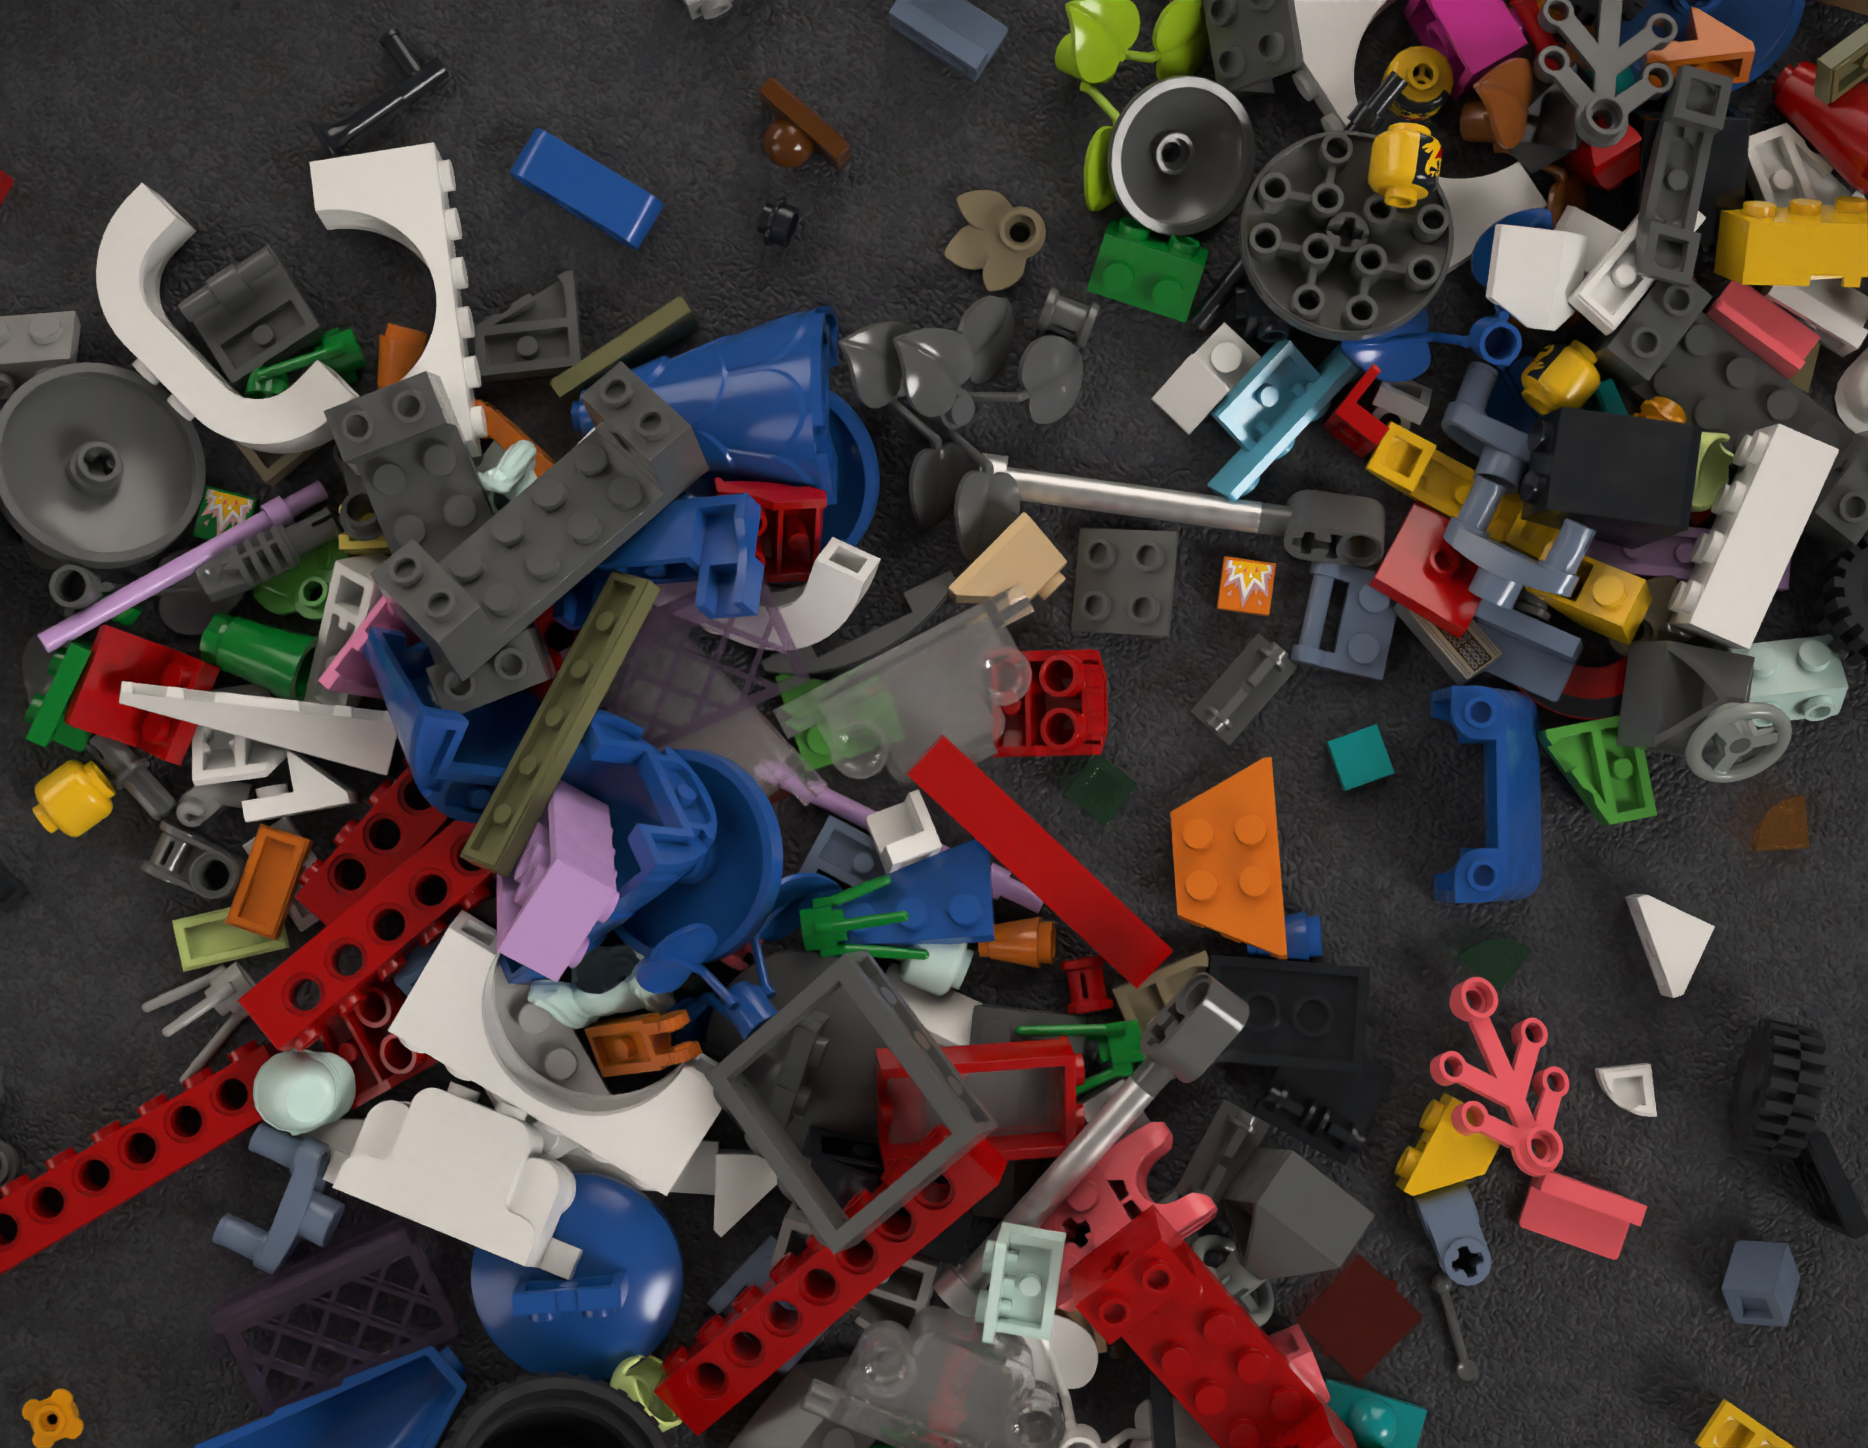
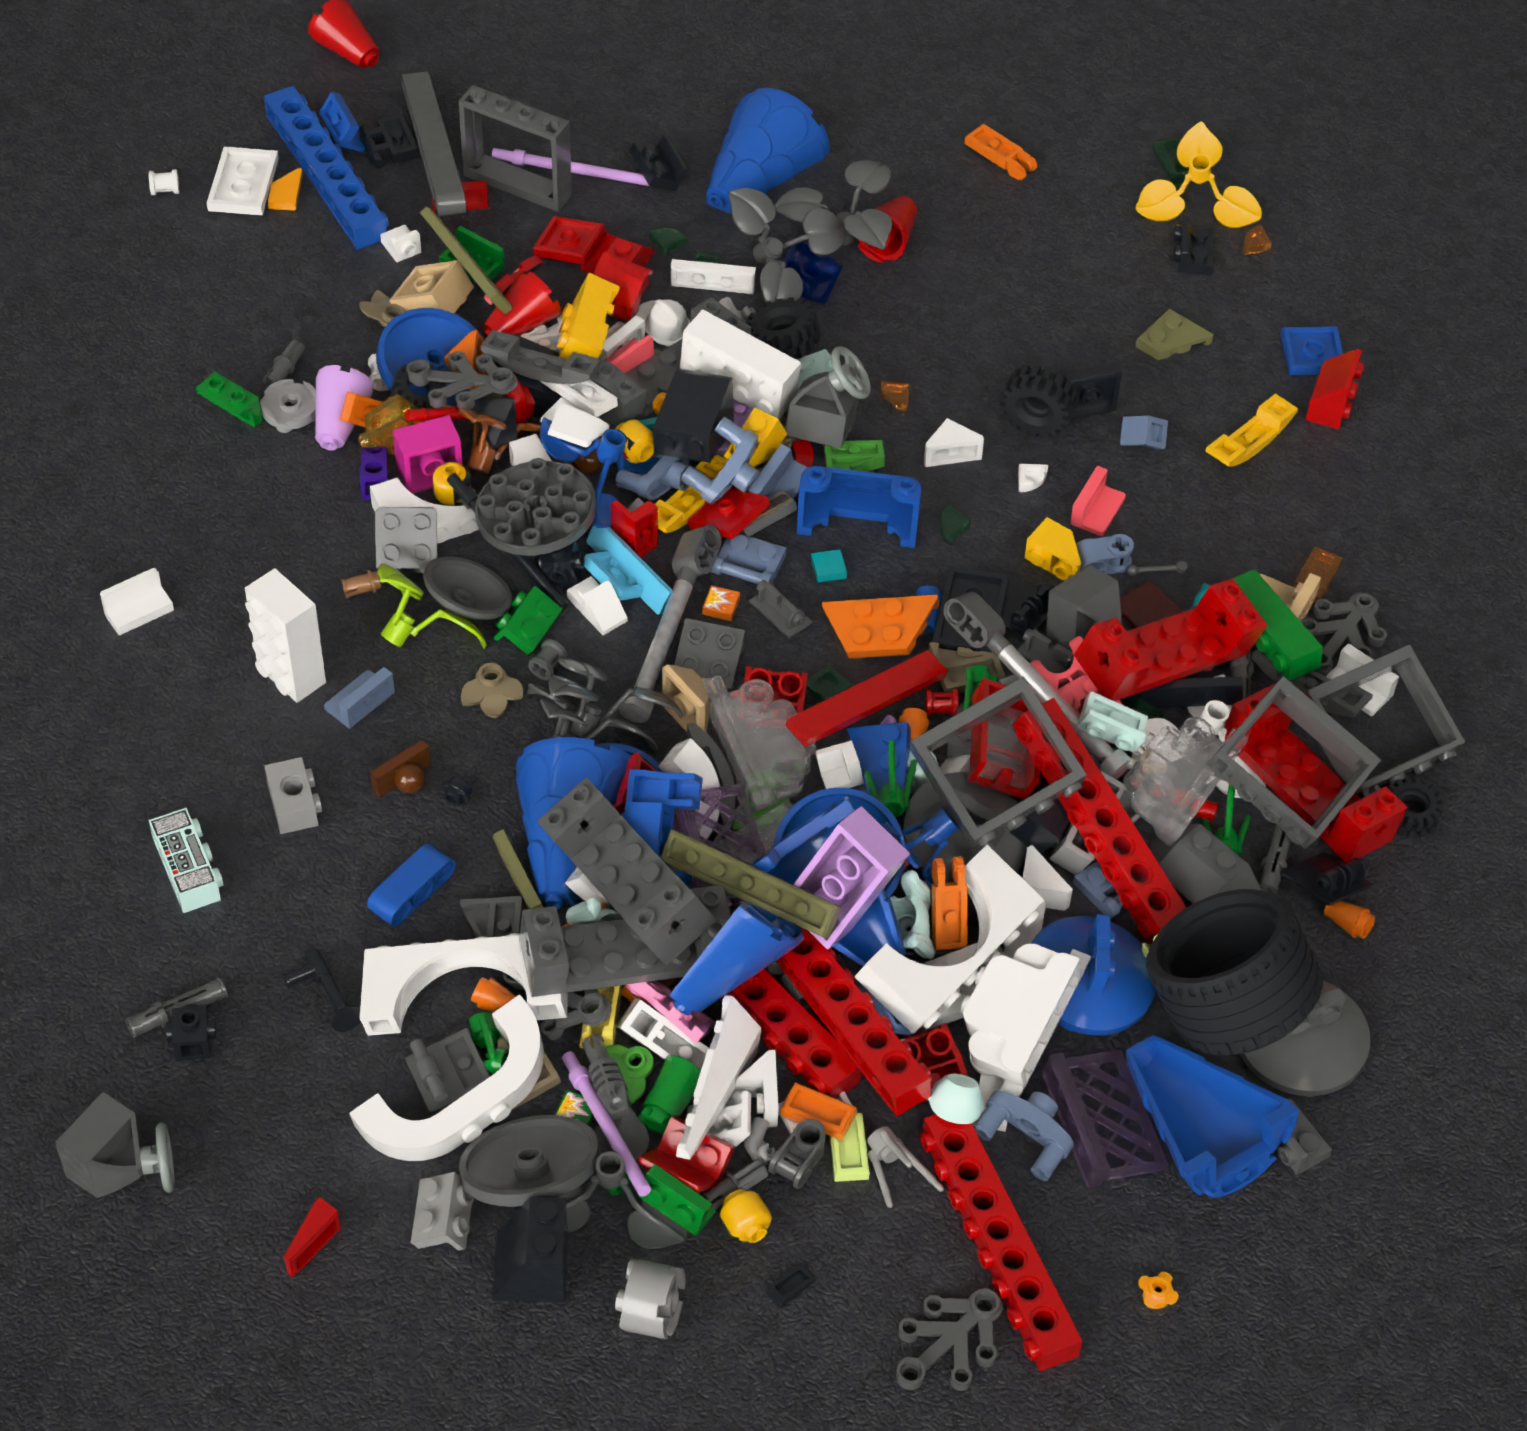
camera: 85 degrees left, 35 degrees down
(1405, 164) = (505, 465): yellow head -> none
(1506, 1084) = (1056, 506): coral plant -> none

